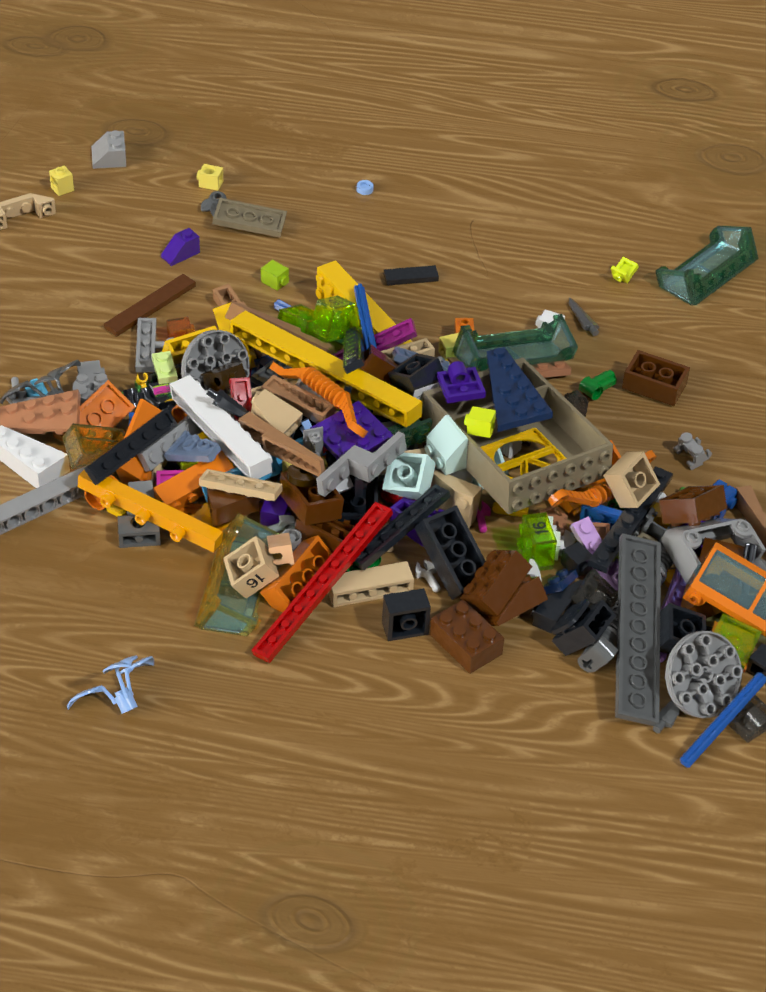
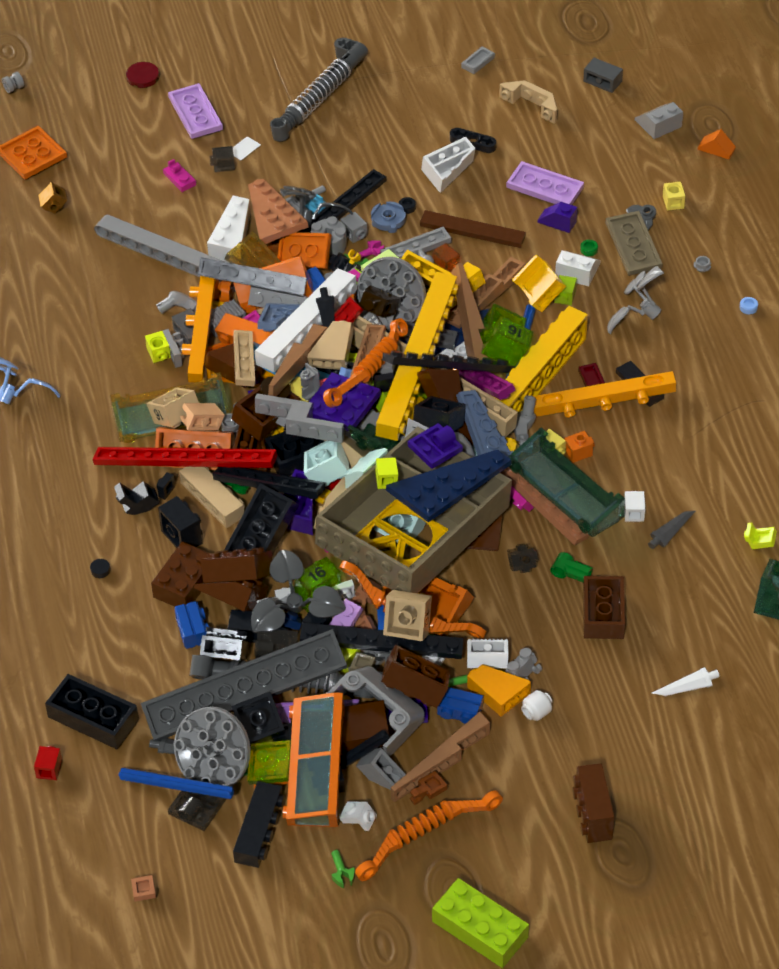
camera: 70 degrees right, 5 degrees up
(27, 161) = (603, 75): none -> dark grey brick
(40, 358) = (352, 196): none -> black tile
(46, 261) = (484, 143): none -> black beam
(61, 180) = (591, 106): light yellow brick -> none
(61, 286) = (448, 162): none -> white wedge
(84, 334) = (408, 204): none -> black tile
(96, 522) = (177, 299): none -> light grey arm
(100, 346) = (384, 223): none -> sand blue plate
(130, 373) = (373, 248): none -> dark pink bar
(133, 242) = (544, 184): none -> lavender plate
(145, 562) = (157, 346): none -> neon yellow brick
(154, 551) = (175, 352): none -> light grey plate
(166, 135) = (717, 144): none -> orange slope
(229, 246) = (589, 248): none -> green tile
(251, 259) = (577, 266): none -> white slope
(262, 282) = (539, 283): none -> yellow panel
(298, 232) = (648, 306): none -> light grey plant
(301, 192) = (702, 264): none -> light grey plate
(338, 614) = (165, 485): none -> black plate
(344, 639) = (137, 500): none -> black brick
(364, 316) = (508, 361): blue axle -> none
(389, 299) = (590, 374): none -> dark red tile
(413, 700) = (100, 568): none -> black tile
(416, 293) = (605, 394): none -> light orange piece
(529, 651) = (190, 623): none -> blue brick
(572, 578) = (289, 567): none -> dark grey plant
(605, 756) = (92, 711): none -> black brick
(649, 814) = (48, 763): none -> red brick
(673, 459) = (487, 652): none -> white brick
(708, 470) = (500, 689): none -> light orange slope
(738, 455) = (536, 705): none -> white head
(750, 360) = (694, 681): none -> white bar

